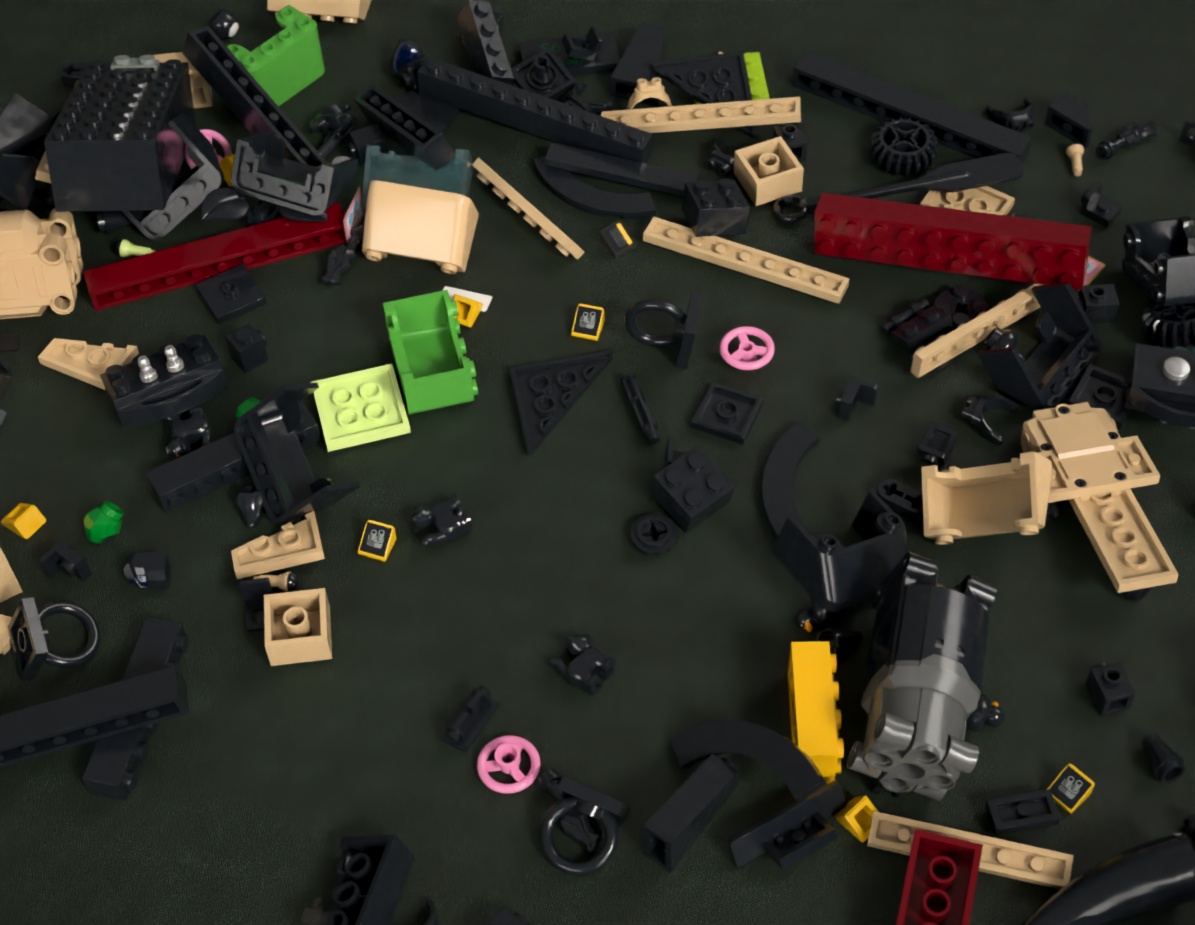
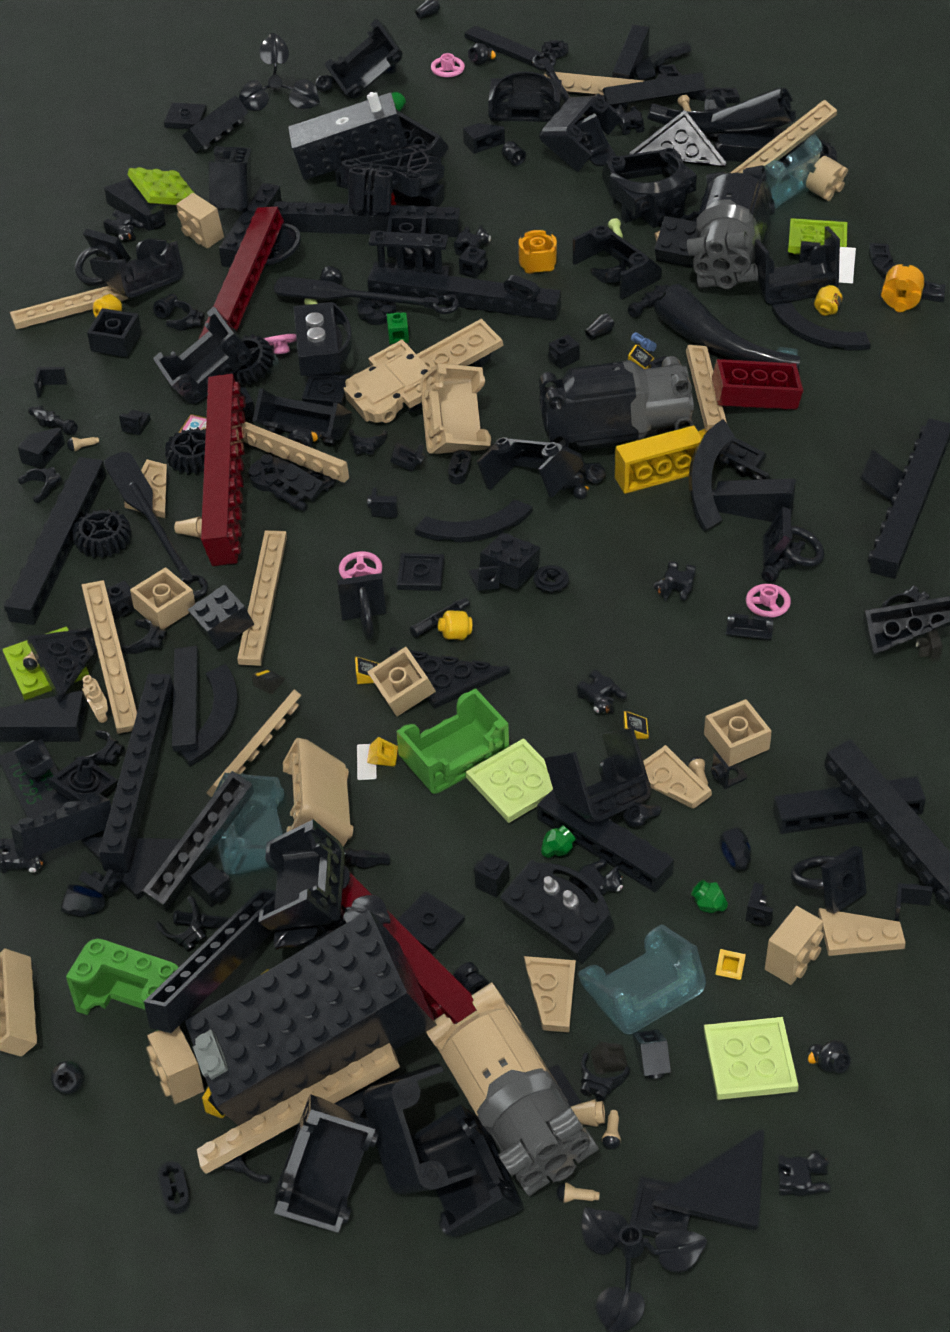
camera: 110 degrees left, 5 degrees down
(45, 426) = (649, 985): none -> clear light blue windscreen
(134, 304) = (470, 978): none -> black wheel
(541, 334) = (401, 681): none -> tan brick
(614, 413) = (455, 625): none -> yellow head
(1095, 804) = (644, 342): none -> medium blue piece

